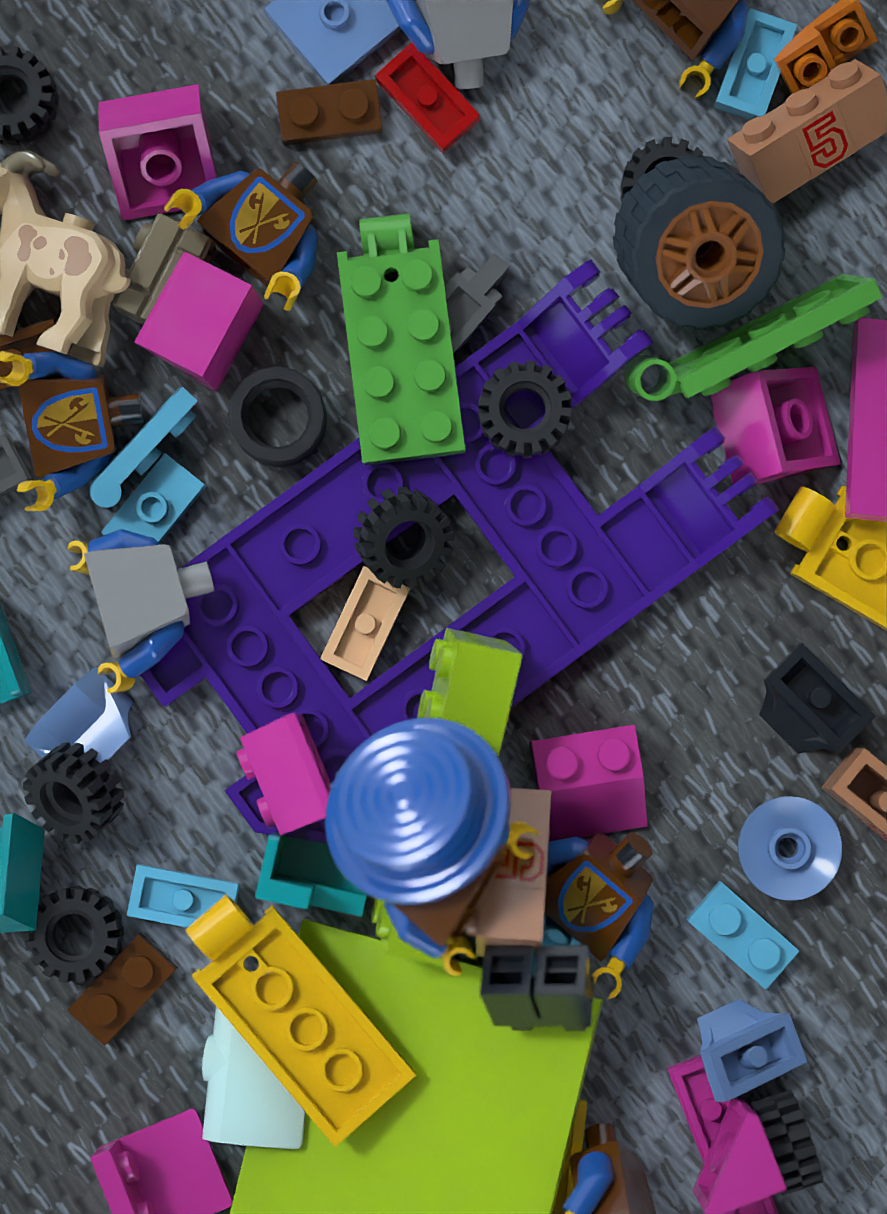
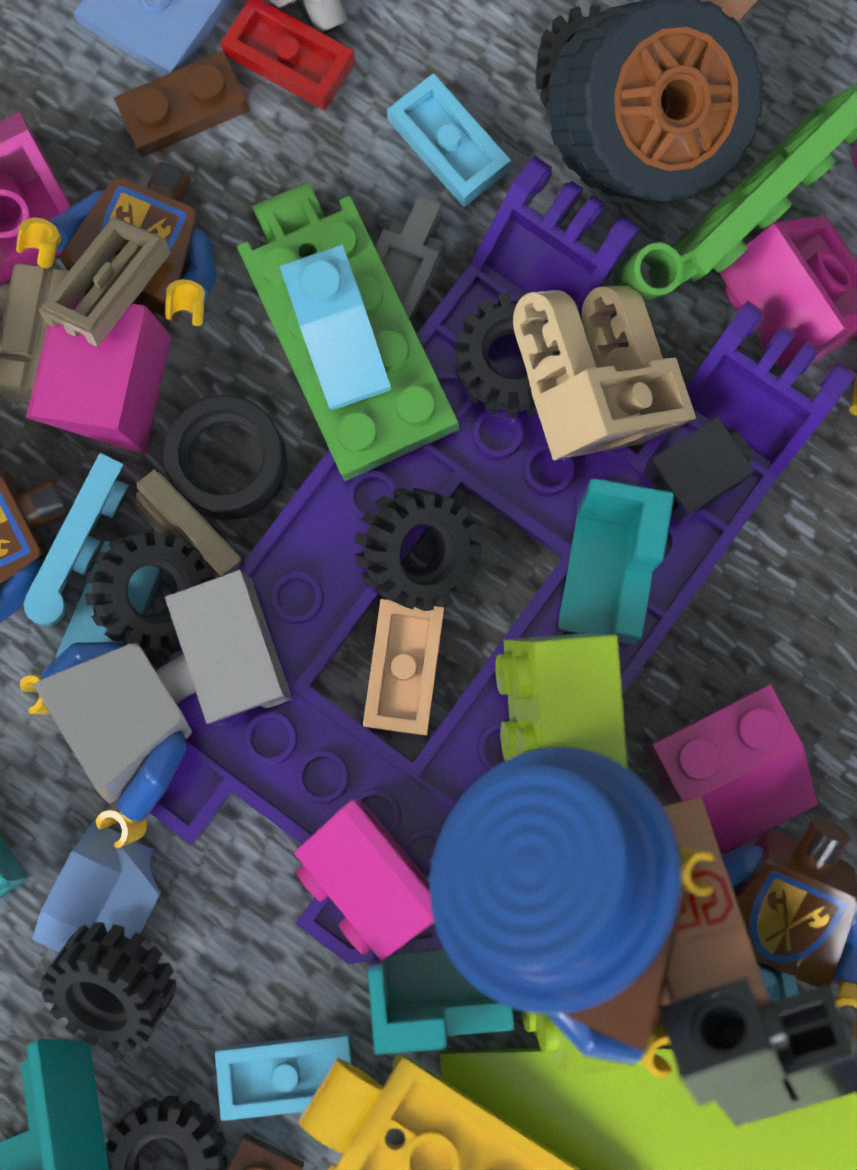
camera: 15 degrees left, 5 degrees down
(215, 518) = (112, 580): none -> black tyre
(230, 467) = (171, 513): none -> dark tan tile
(232, 275) = (114, 285): none -> dark tan tile
(236, 568) = (228, 646): none -> light grey panel
(392, 350) = (335, 327): none -> medium azure slope
(485, 942) = (698, 1022): none -> black brick
(533, 212) = (448, 140): none -> medium azure plate
(545, 597) = (612, 559): none -> teal panel
(603, 474) = (605, 397): none -> tan brick
(638, 544) = (701, 468): none -> black brick

